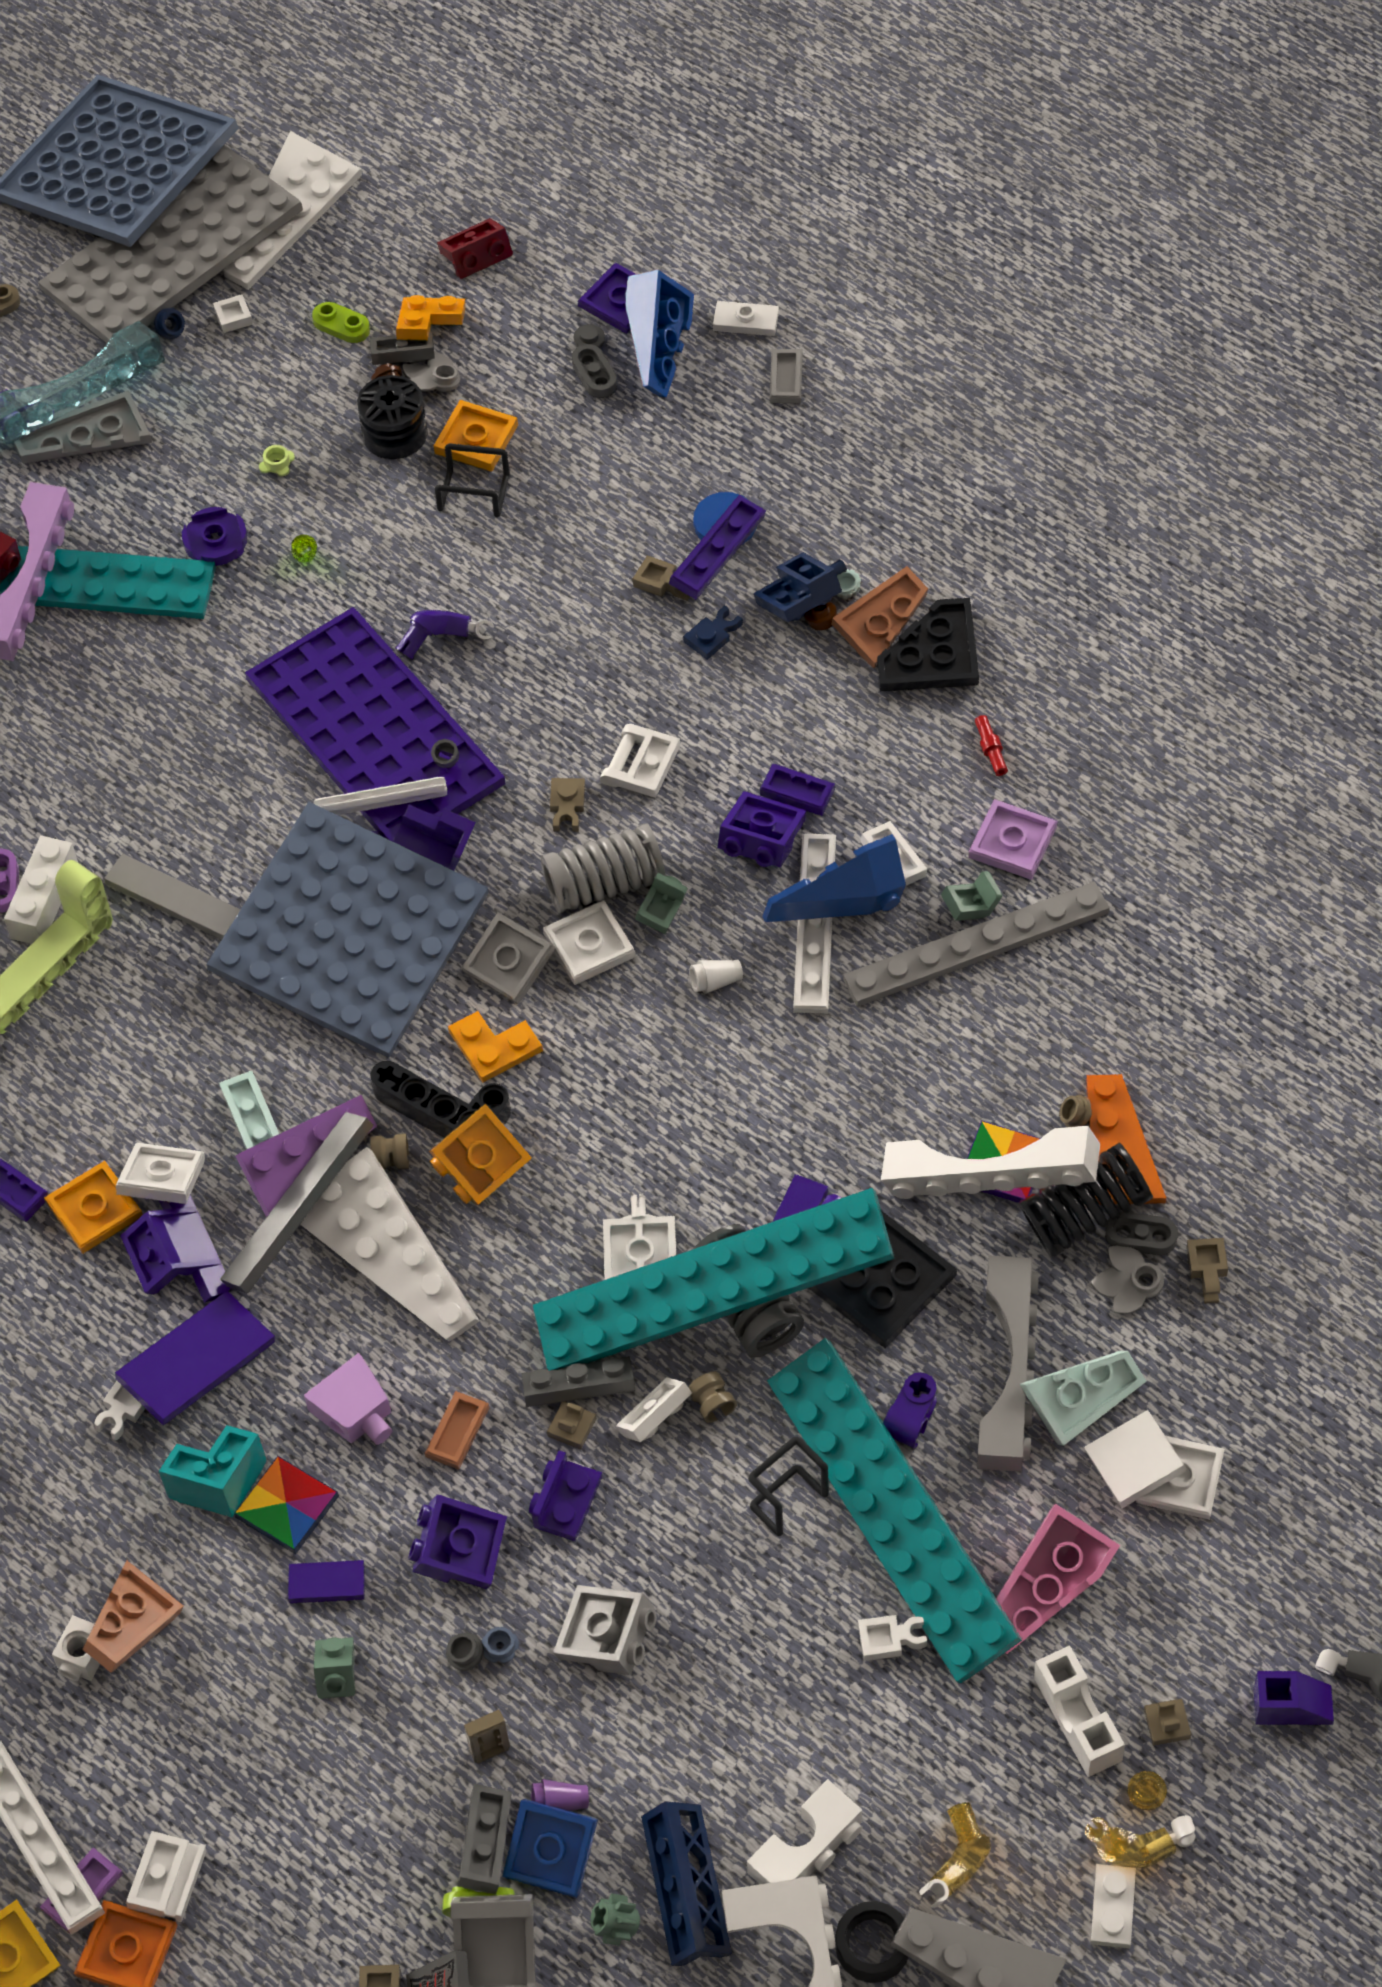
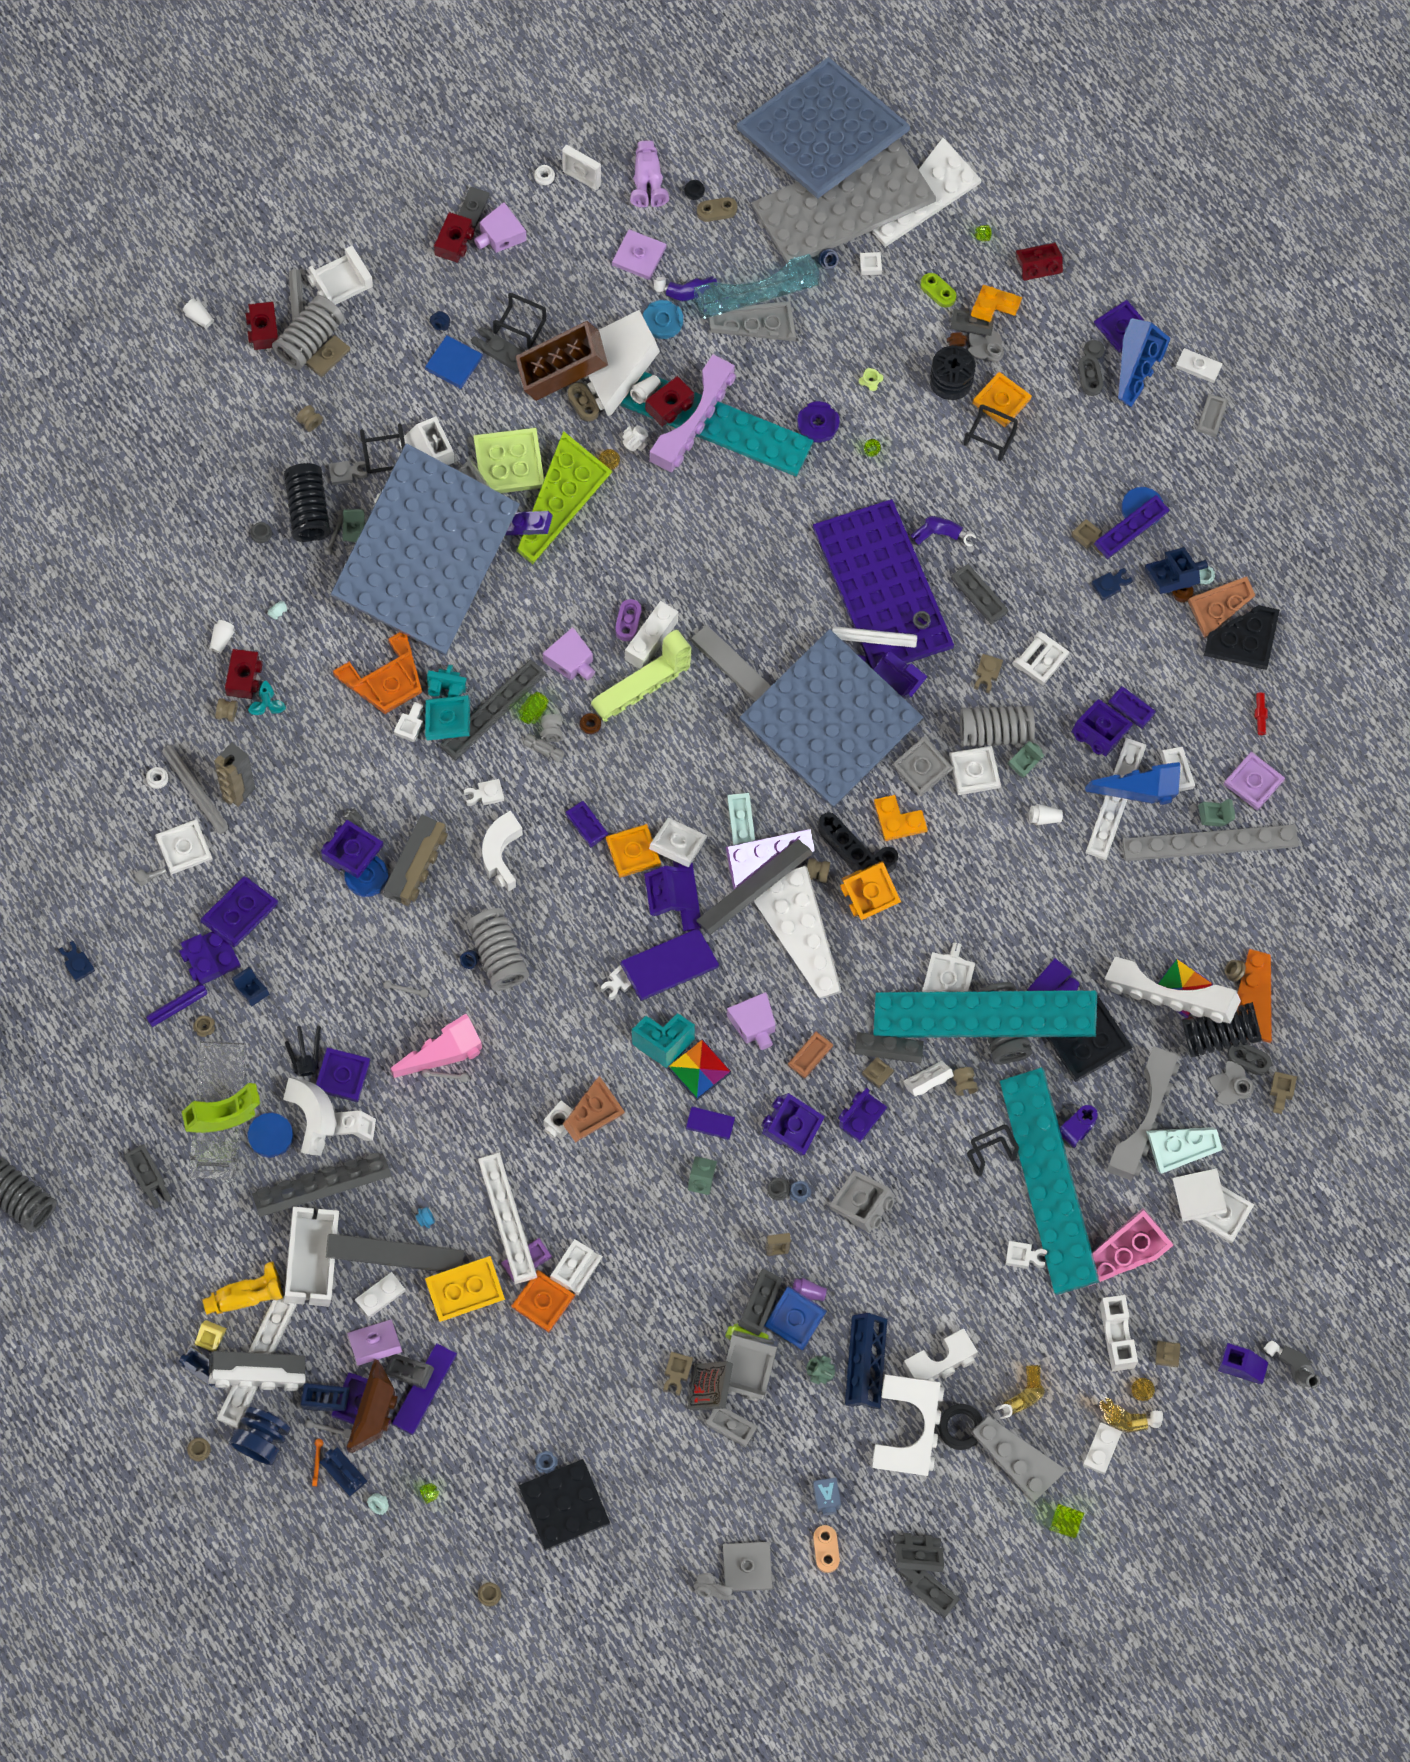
camera: 10 degrees right, 10 degrees up
(384, 233) = (983, 233): none -> clear neon green hinge
(522, 699) = (979, 594): none -> dark grey plate

